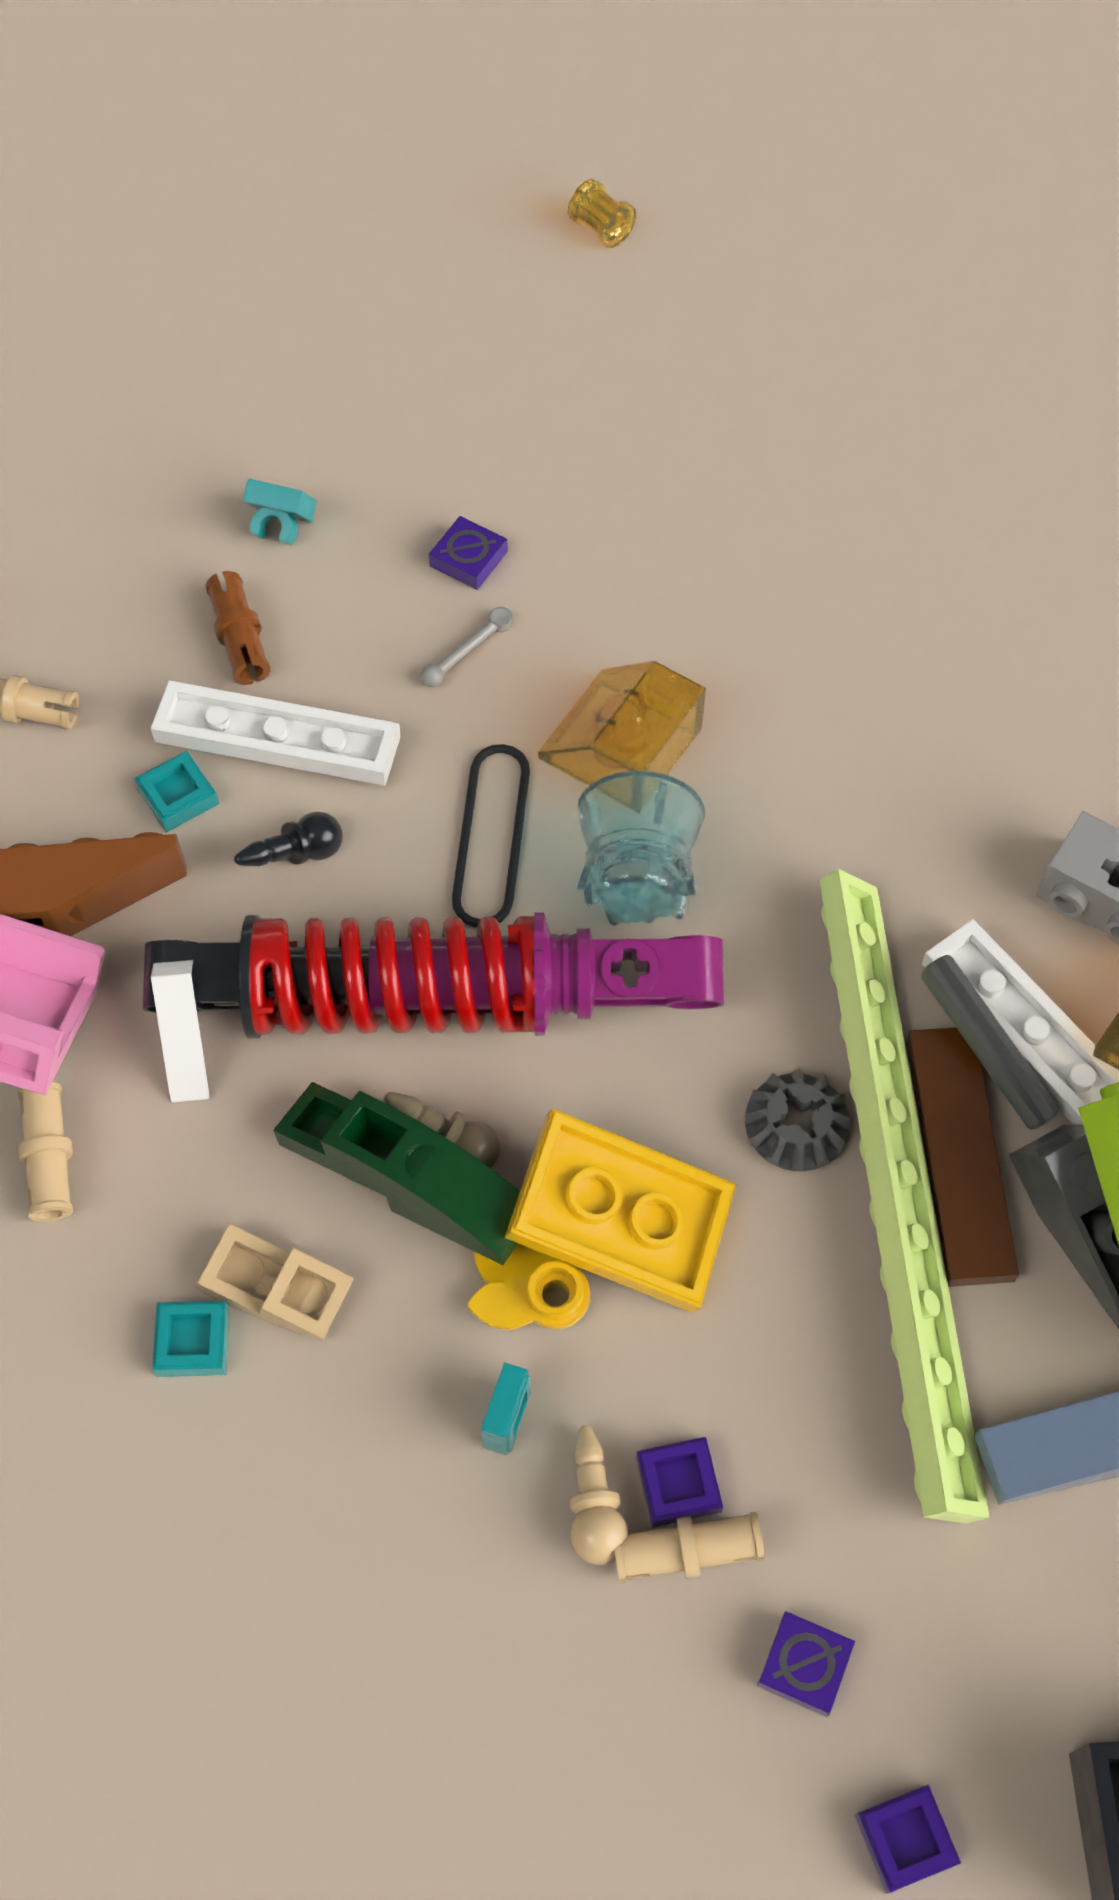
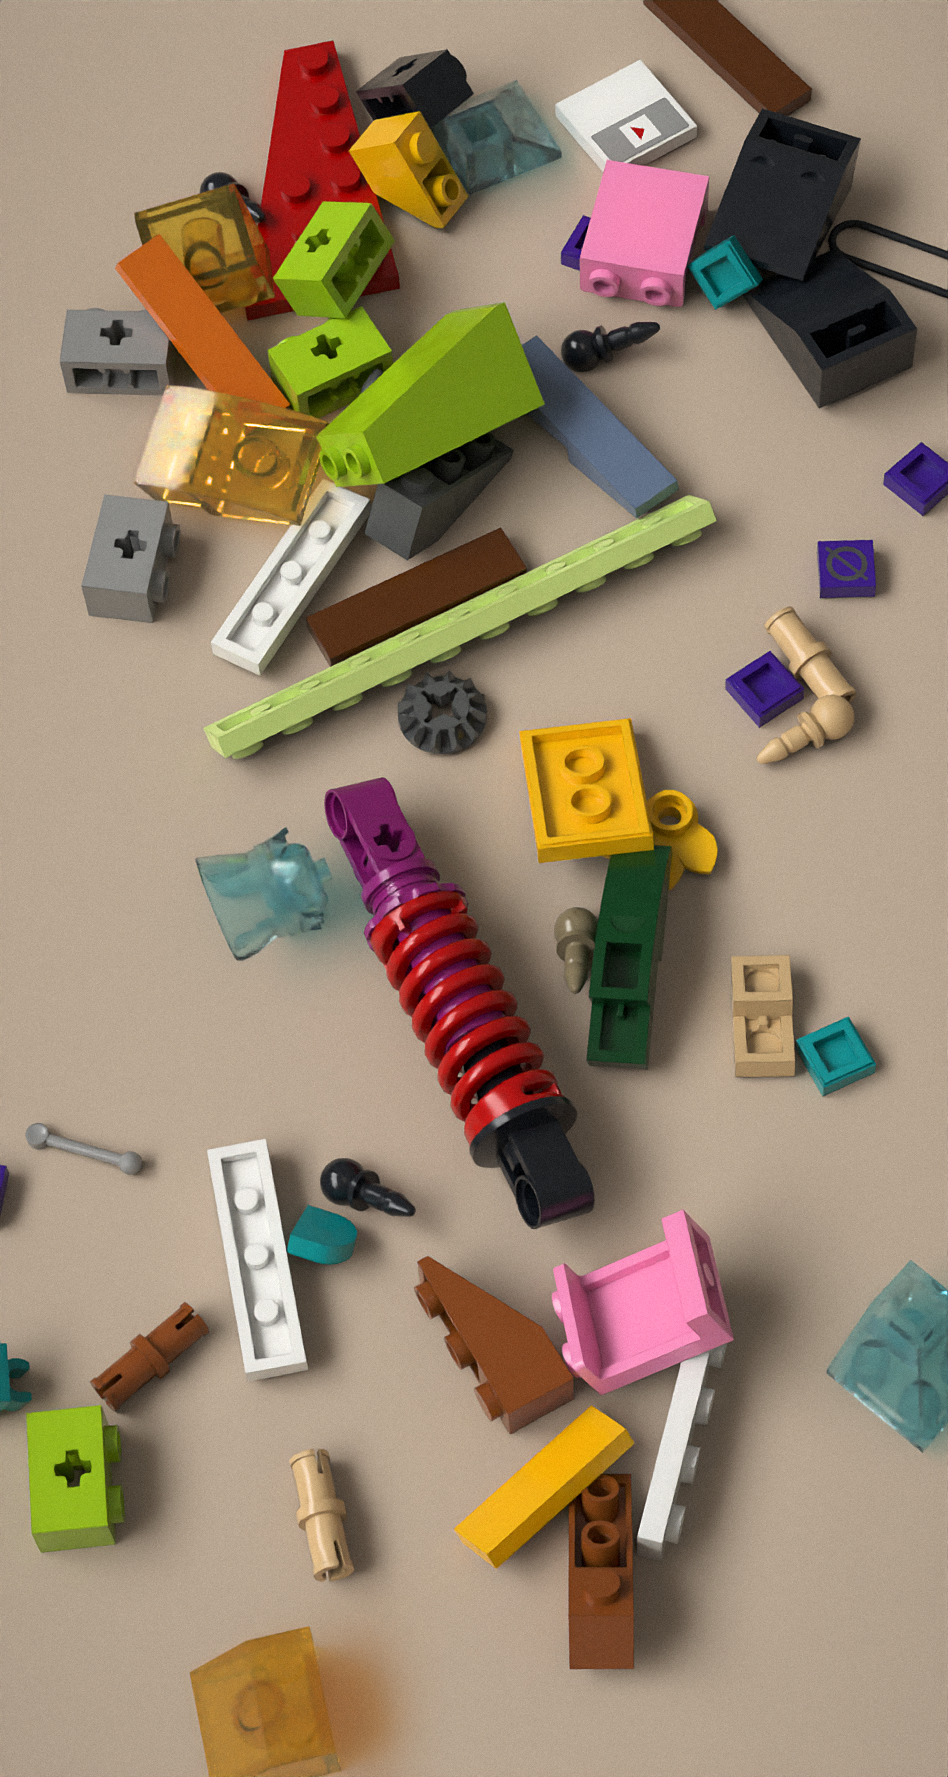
camera: 110 degrees left, 0 degrees up
(45, 1154) = (751, 1233): tan pin -> none
(159, 533) = (57, 1447): none -> lime brick
(176, 791) = (352, 1323): teal tile -> none
(179, 1031) = (571, 1164): white piece -> none
(265, 789) = (322, 1237): none -> teal tile
(466, 828) = (343, 1001): black piece -> none
(506, 1409) = (777, 807): teal tile -> none
(627, 722) = (129, 968): clear yellow slope -> none
(989, 1042) = (320, 596): dark grey axle -> none

